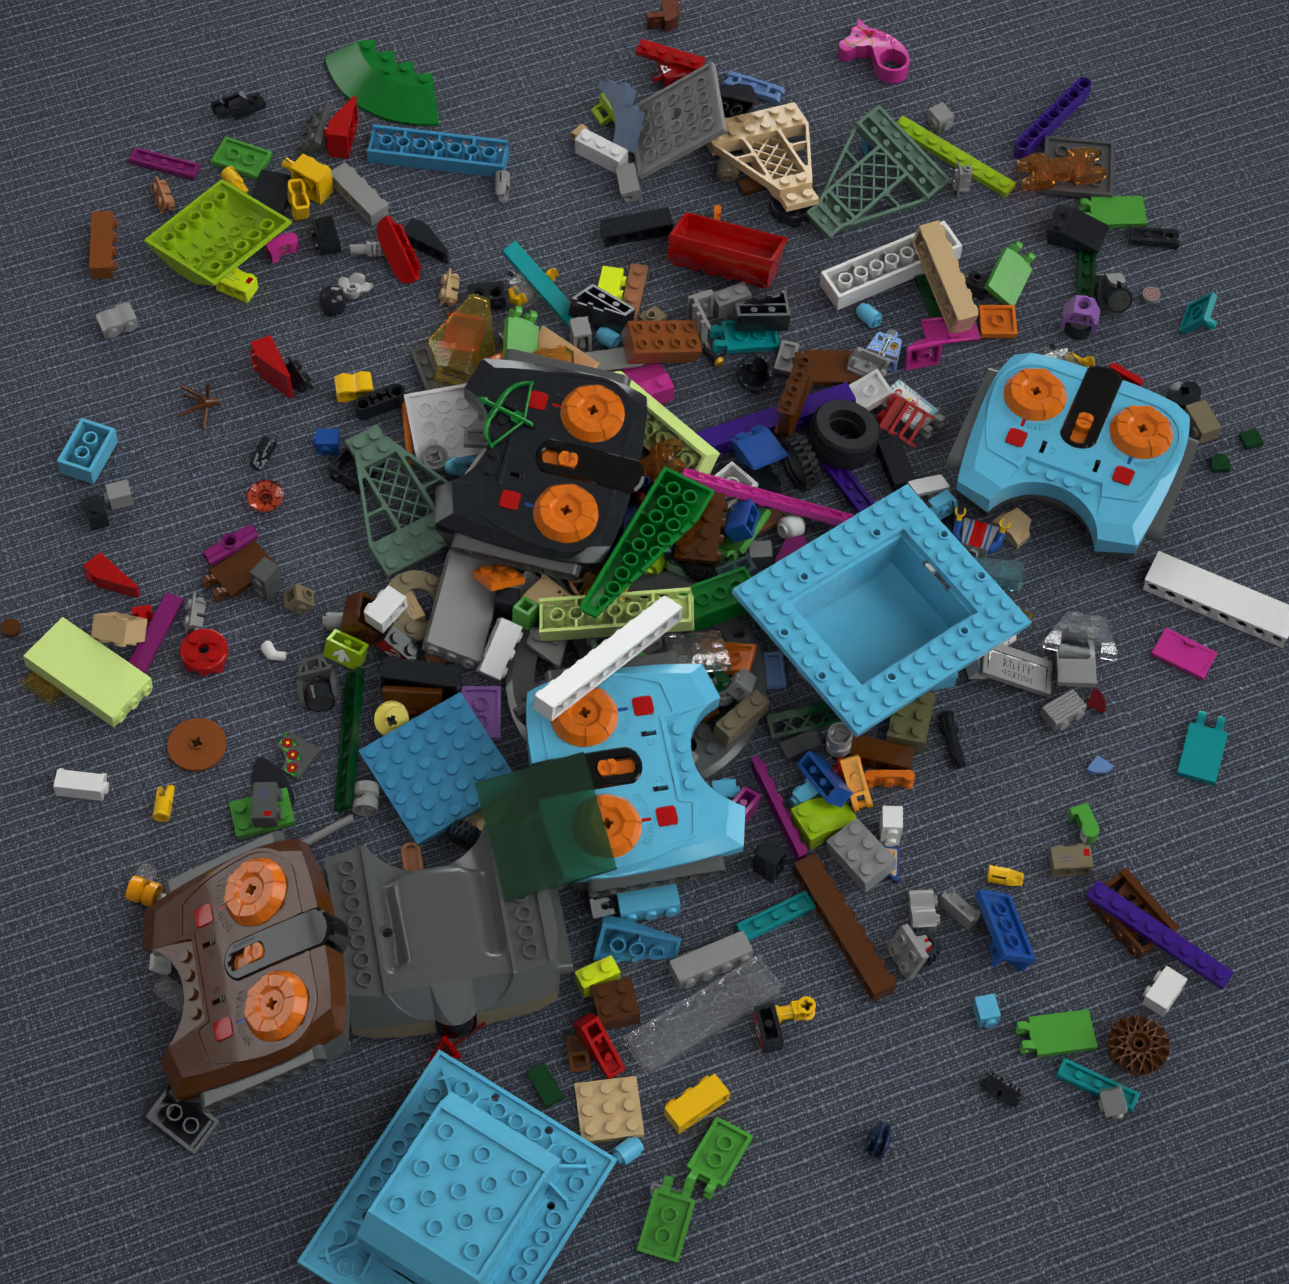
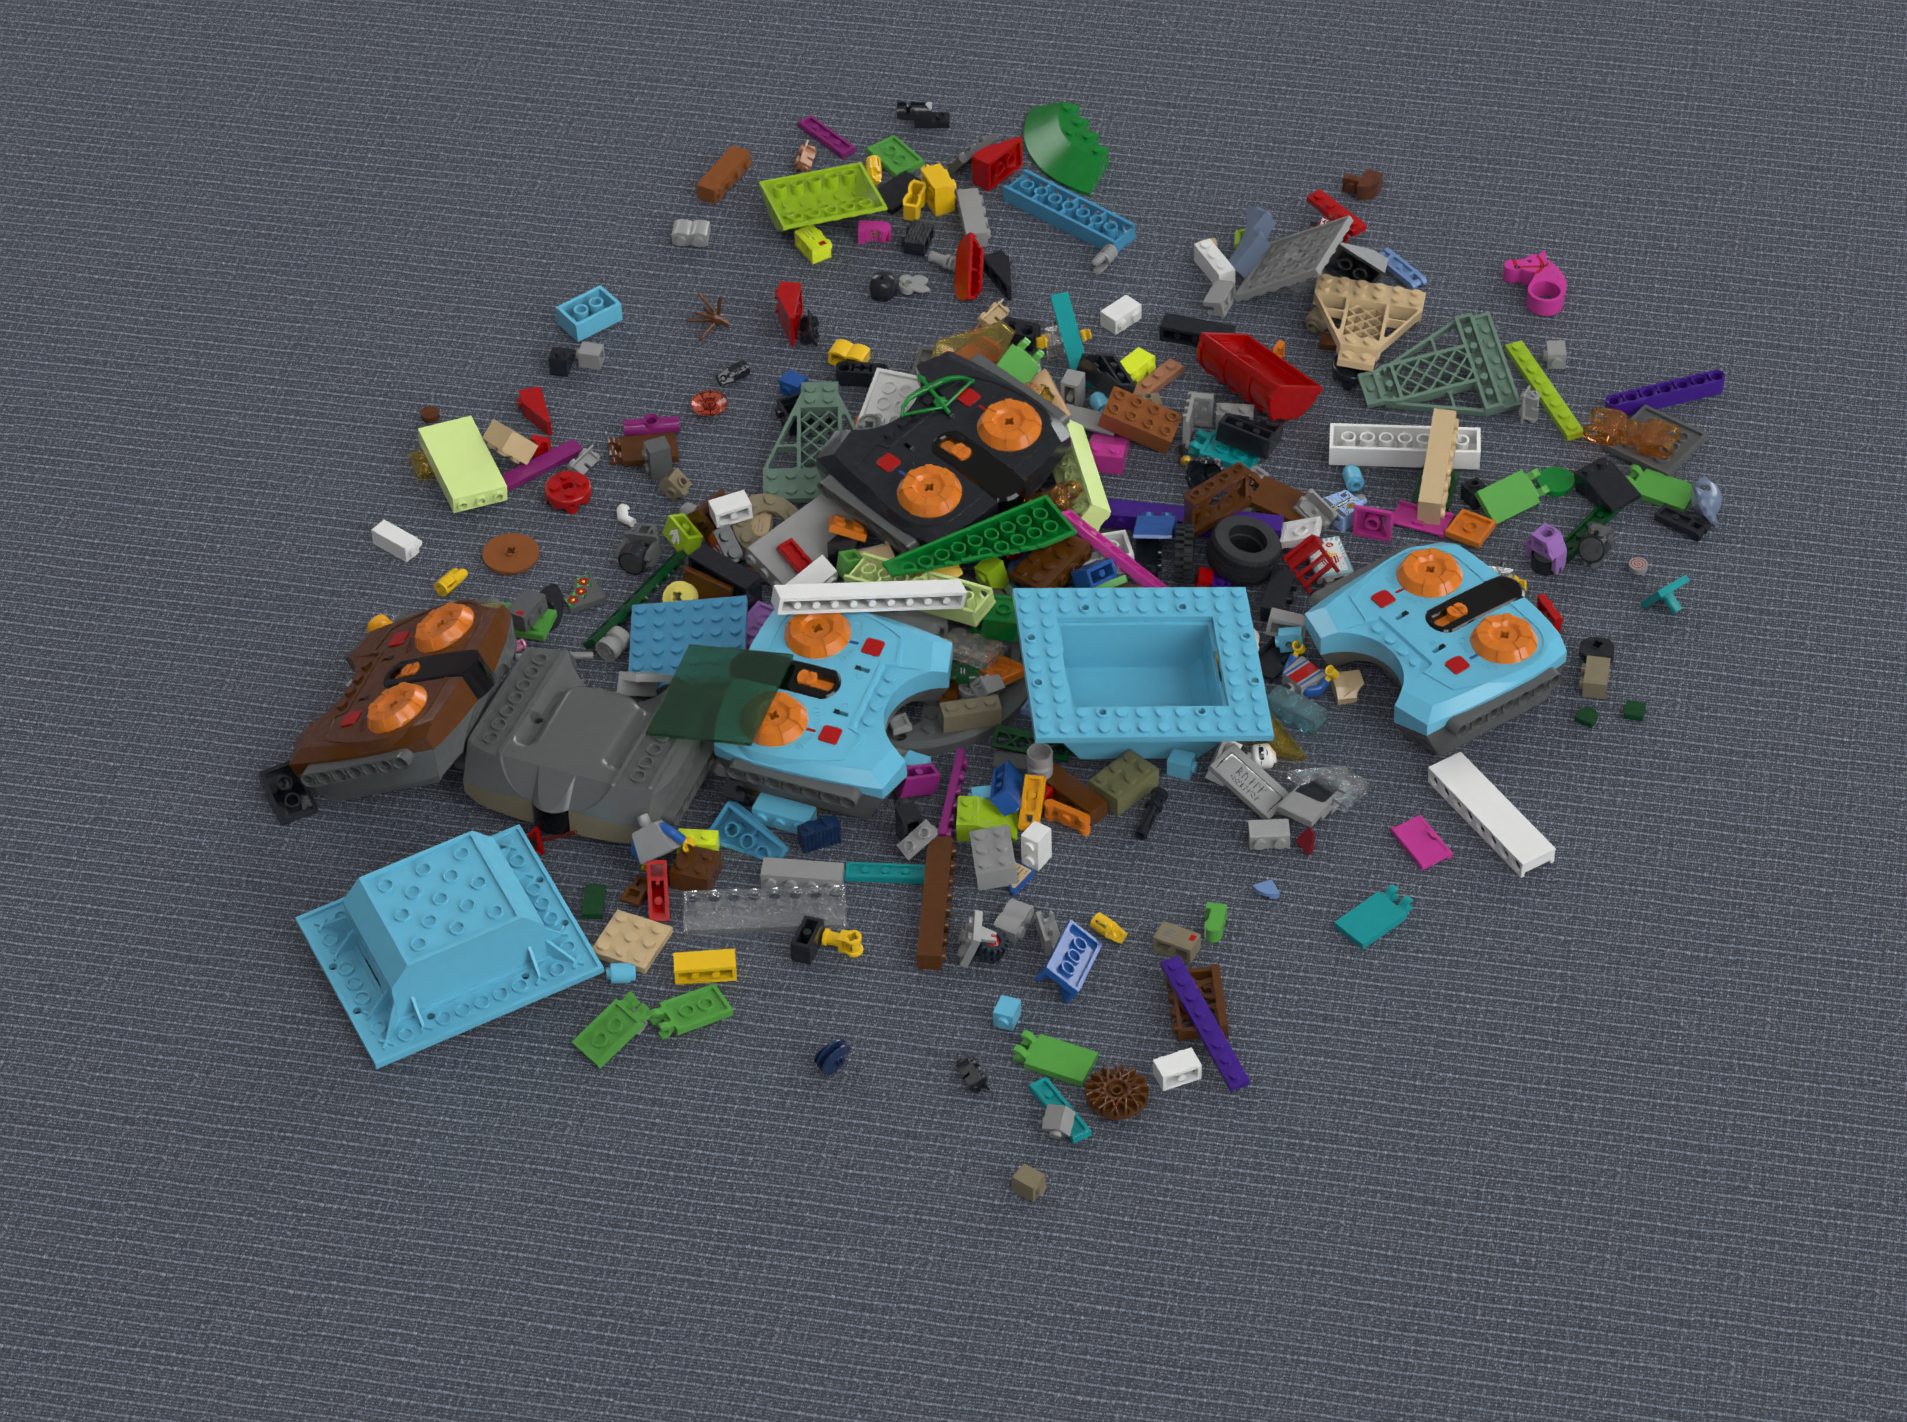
camera: 35 degrees right, 15 degrees down
(444, 835) = (640, 683): none -> light grey panel
(473, 629) = (794, 555): none -> red plate
(559, 237) = (1121, 314): none -> white brick
(574, 1000) = (656, 840): none -> light grey torso
(694, 907) = (819, 833): none -> dark blue brick
(788, 872) = (917, 839): none -> light grey hinge
(828, 478) = (1204, 577): none -> red slope
(1032, 240) = (1557, 480): none -> green tile
(1133, 1178) = (1028, 1183): none -> dark tan brick
(1165, 211) = (1706, 502): none -> sand blue piece

